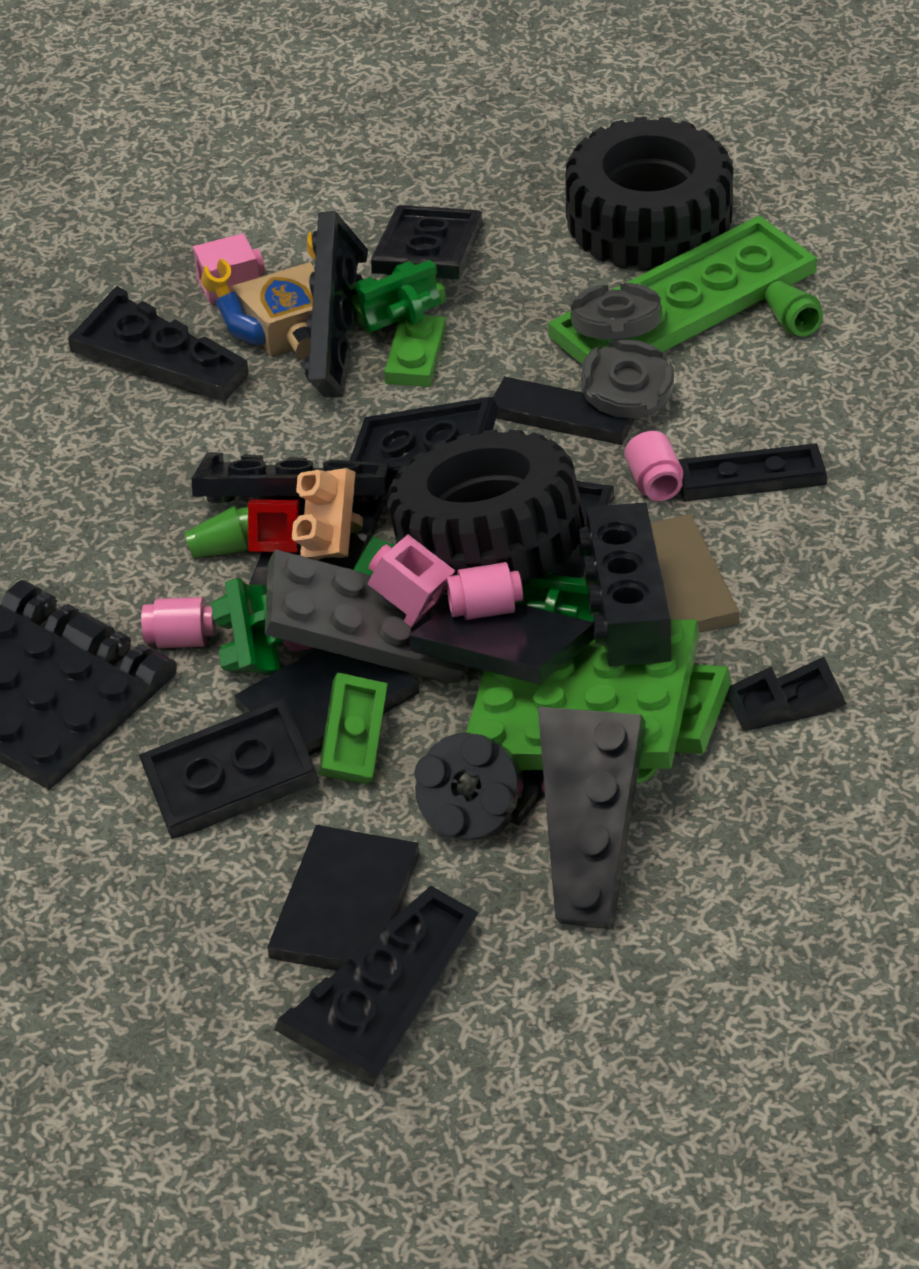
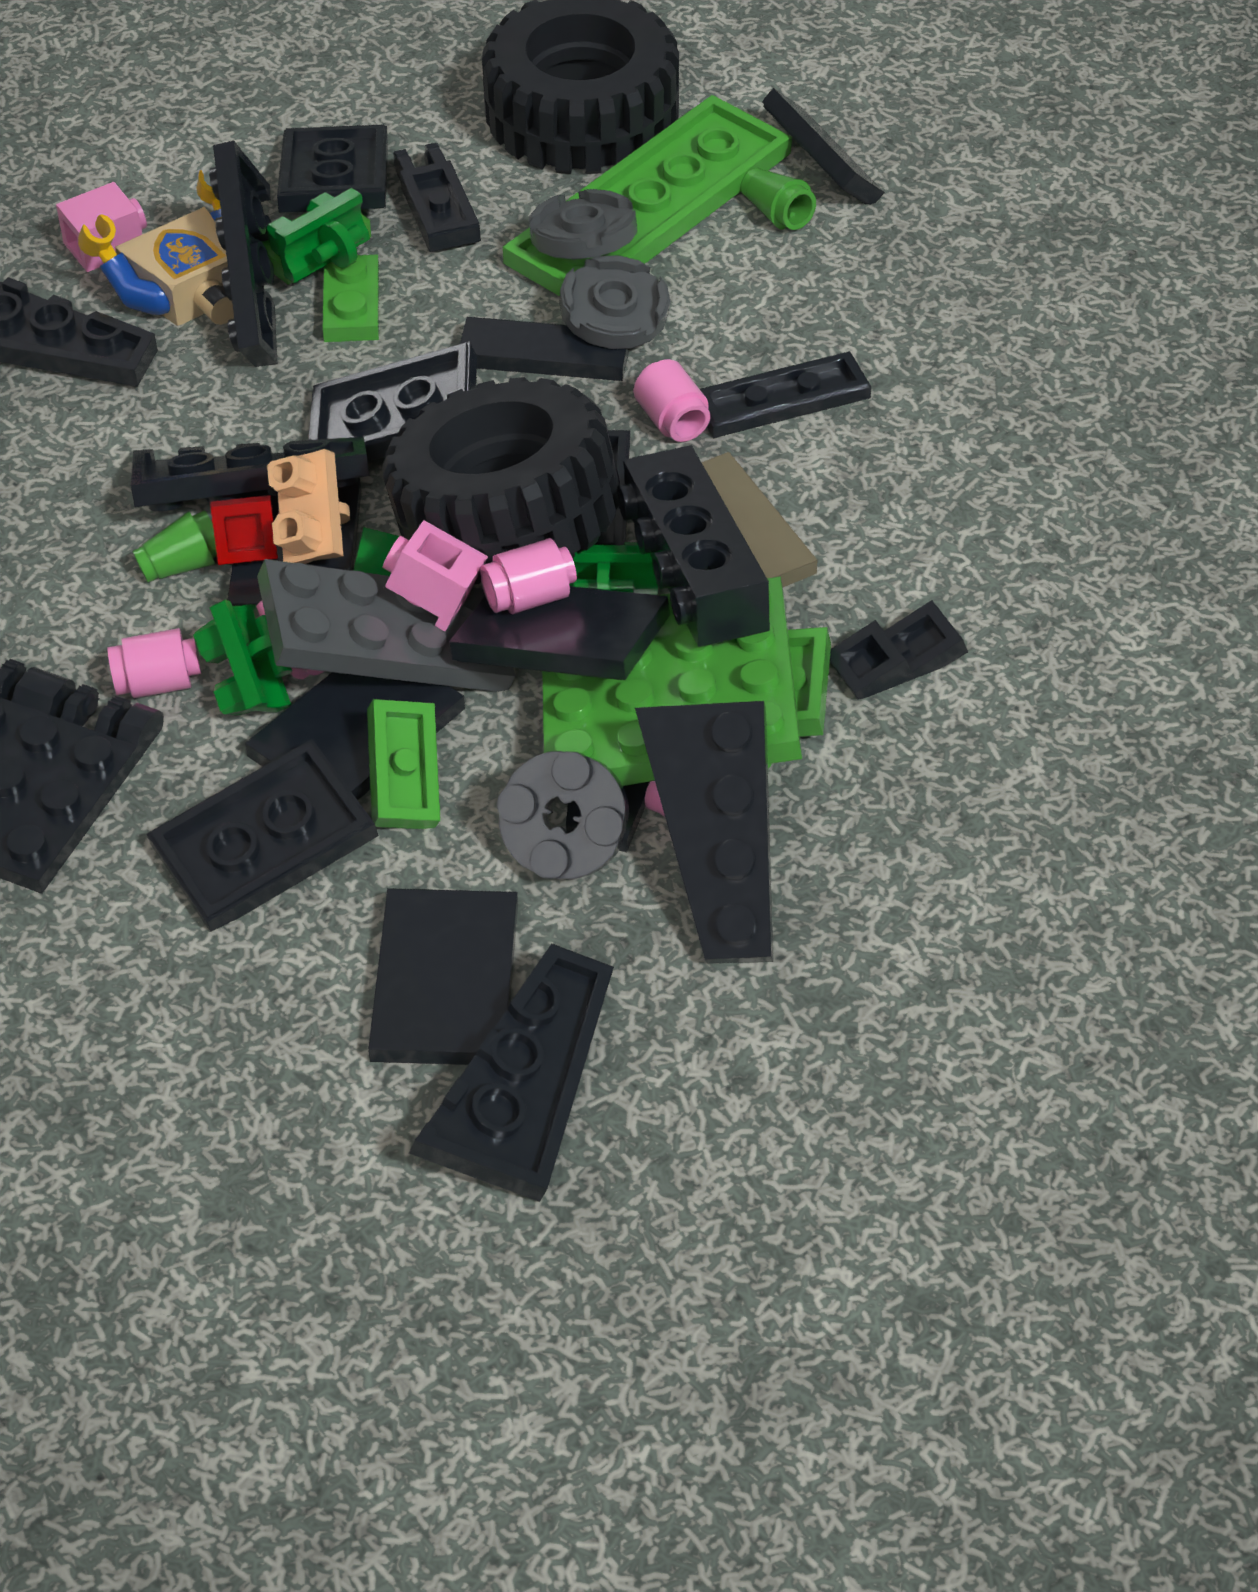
camera: 15 degrees left, 5 degrees up
(506, 278) = (437, 200): none -> black hinge
(842, 270) = (822, 148): none -> black tile

